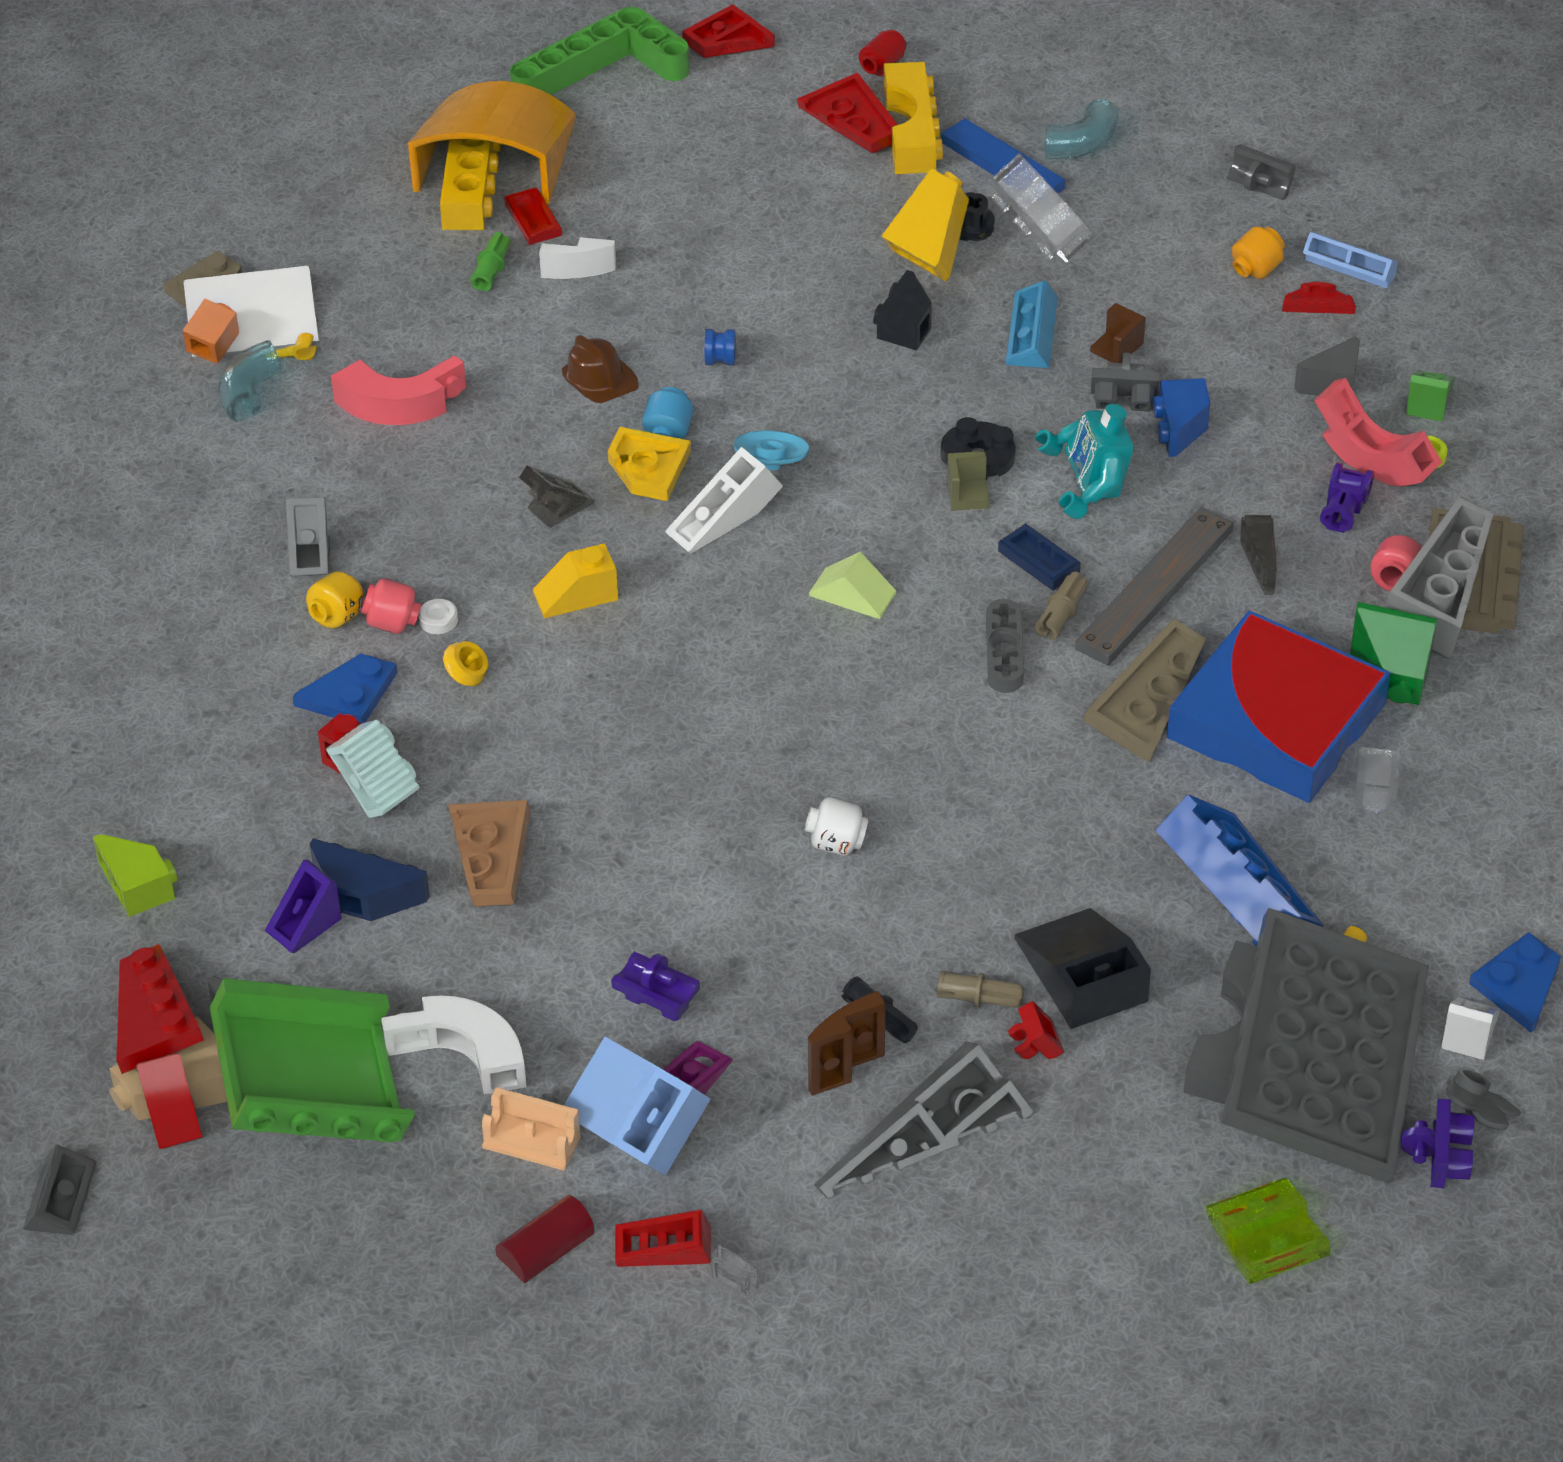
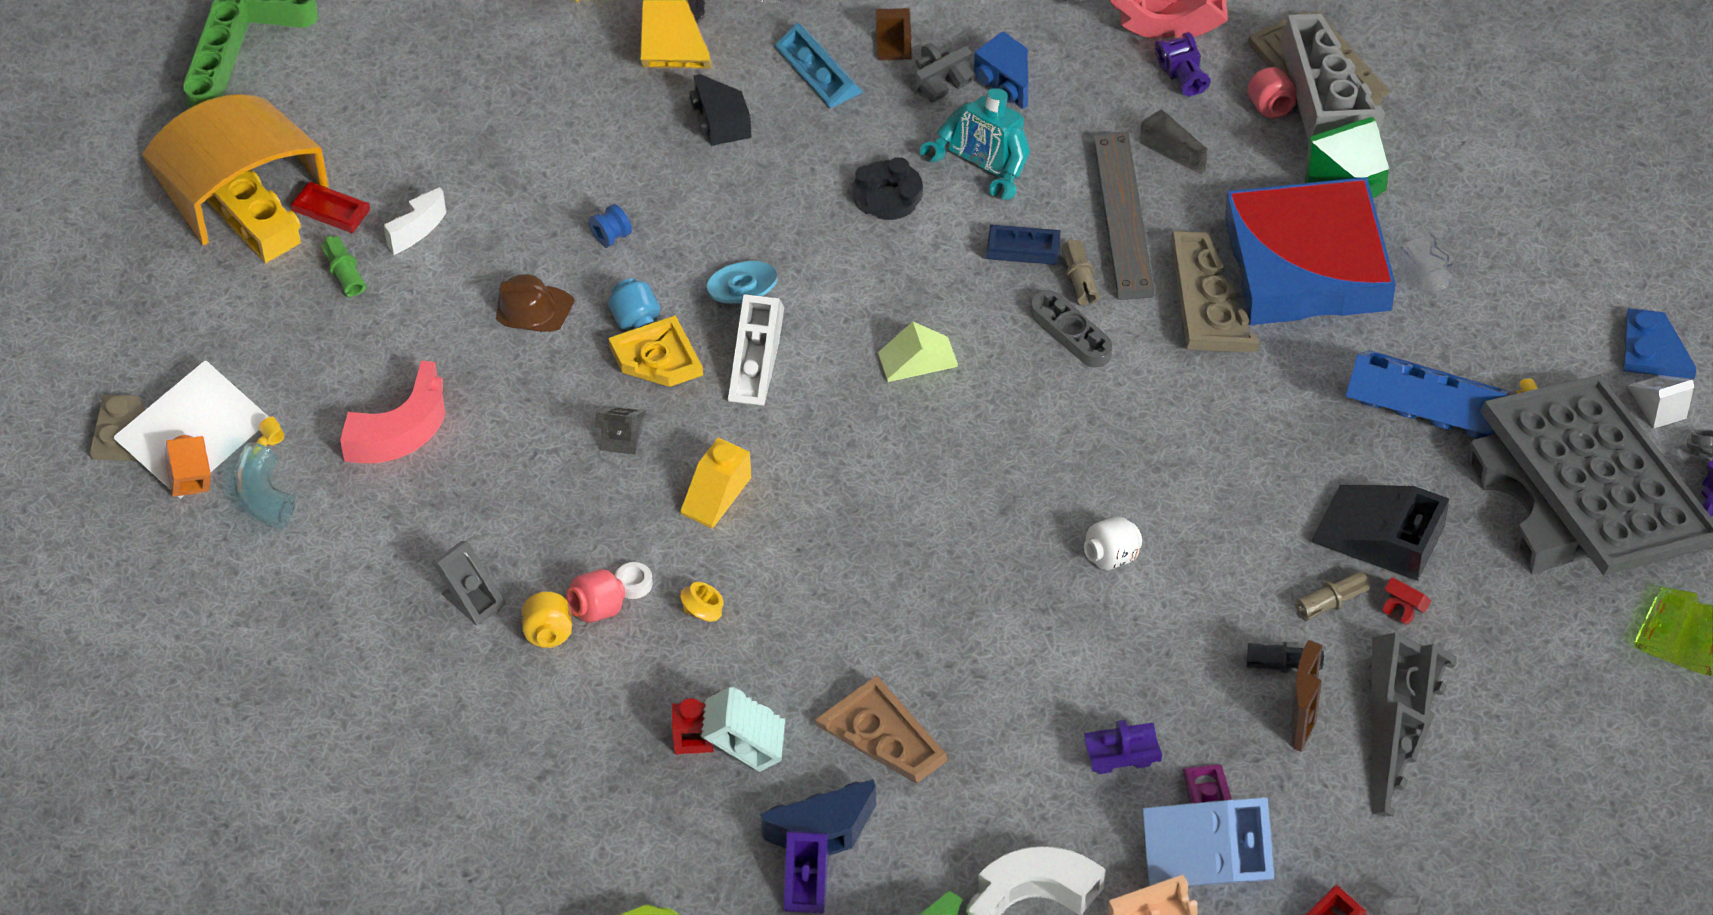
camera: 40 degrees left, 5 degrees up
(349, 688) = (633, 683): blue wing -> none
(967, 481) = (911, 221): olive panel -> none

